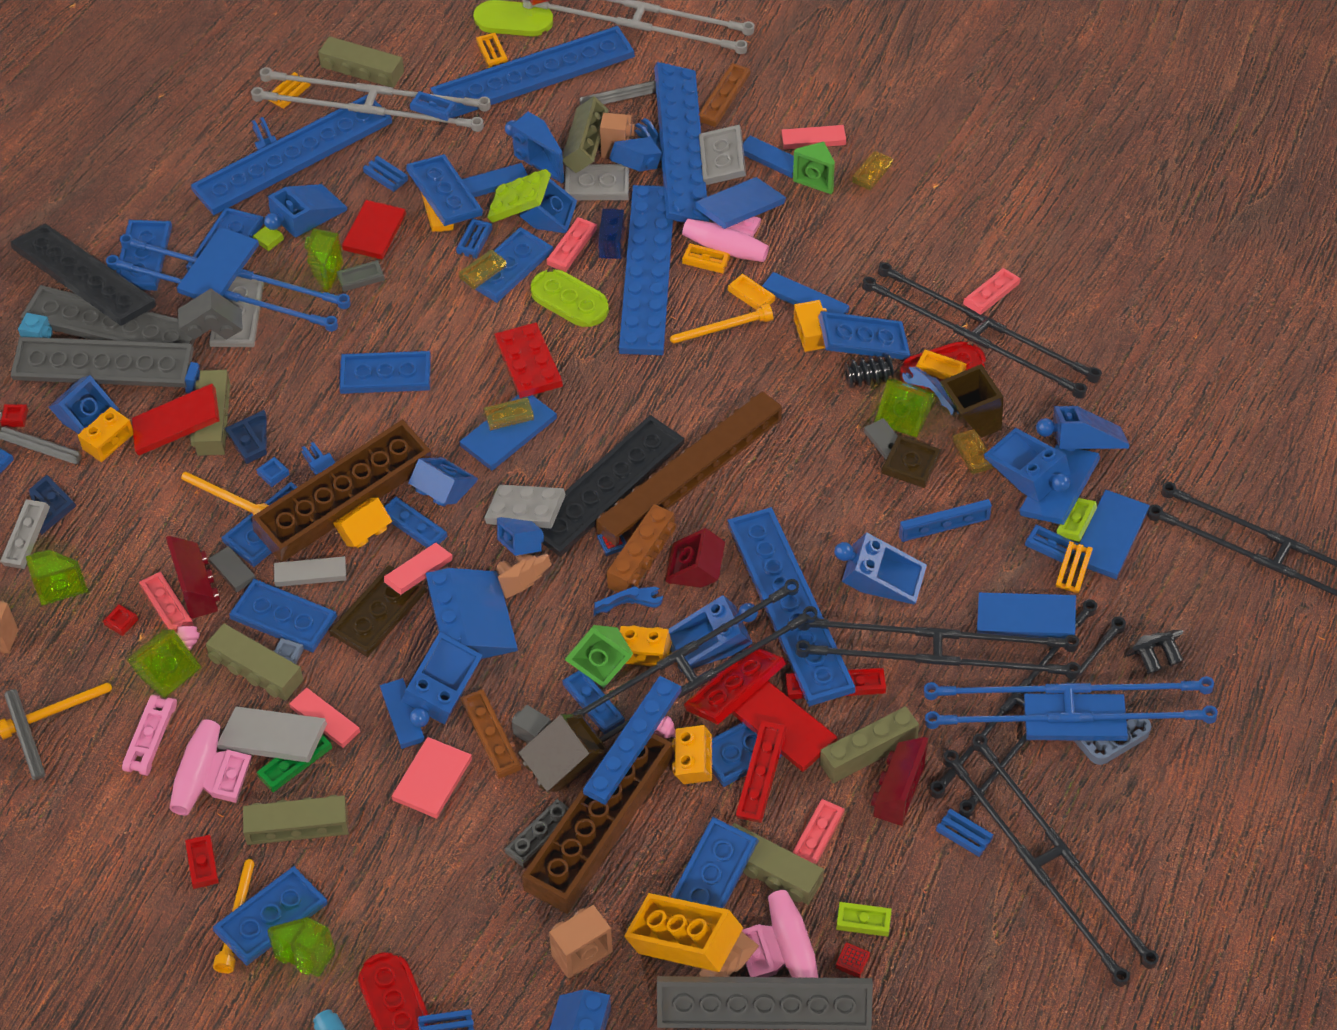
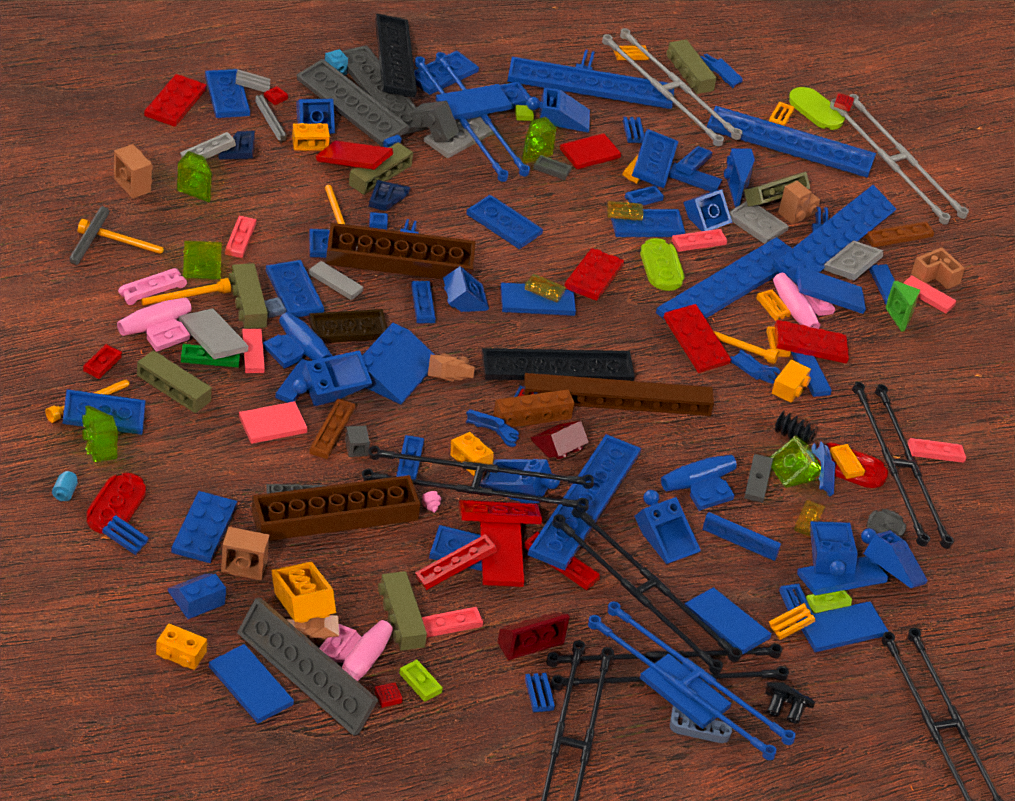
camera: 35 degrees right, 10 degrees down
(120, 620) = (207, 226): red tile -> none
(188, 635) = (230, 258): bright pink plate -> none
(193, 577) = (266, 230): dark red slope -> none
(216, 673) = (222, 286): none -> light orange piece
(232, 569) = (295, 247): dark grey tile -> none
(358, 672) = (299, 341): none -> blue plate
(363, 522) = (392, 276): light orange brick -> none
(391, 42) = (723, 69): none -> blue arm
(416, 568) = (384, 319): coral tile -> none
(432, 108) = (698, 112): blue tile -> none
(476, 163) = (694, 160): none -> blue tile
(501, 947) = (204, 527): none -> blue plate
(519, 195) = (694, 189): lime plate -> none
(519, 535) = (471, 348): blue slope -> none
(526, 503) = (495, 338): light grey plate -> none
(563, 752) = (356, 460): slope -> none
(600, 654) = (438, 432): bright green slope -> none
(611, 233) = (728, 249): clear blue brick -> none
(622, 93) = (831, 188): dark grey axle -> none
(632, 740) = (398, 483): blue plate -> none
(636, 154) = (797, 221): blue slope -> none
(688, 350) = (697, 338): none -> red plate
(693, 754) = (428, 523): light orange brick -> none
(715, 865) = (366, 583): blue tile -> none
(764, 338) = (754, 368): none -> blue arm
(780, 270) = (811, 341): none -> red plate
(799, 101) = (938, 266): none -> nougat brick
(849, 490) = (703, 480): none -> blue plate
(863, 335) = (816, 408): blue tile -> none
(868, 744) = (537, 601): olive brick -> none
(872, 170) = (943, 336): clear yellow plate -> none
(911, 461) = (759, 490): dark brown tile -> none
(976, 399) = (836, 485): dark brown slope -> none
(1033, 402) = (885, 521): none -> dark grey tile

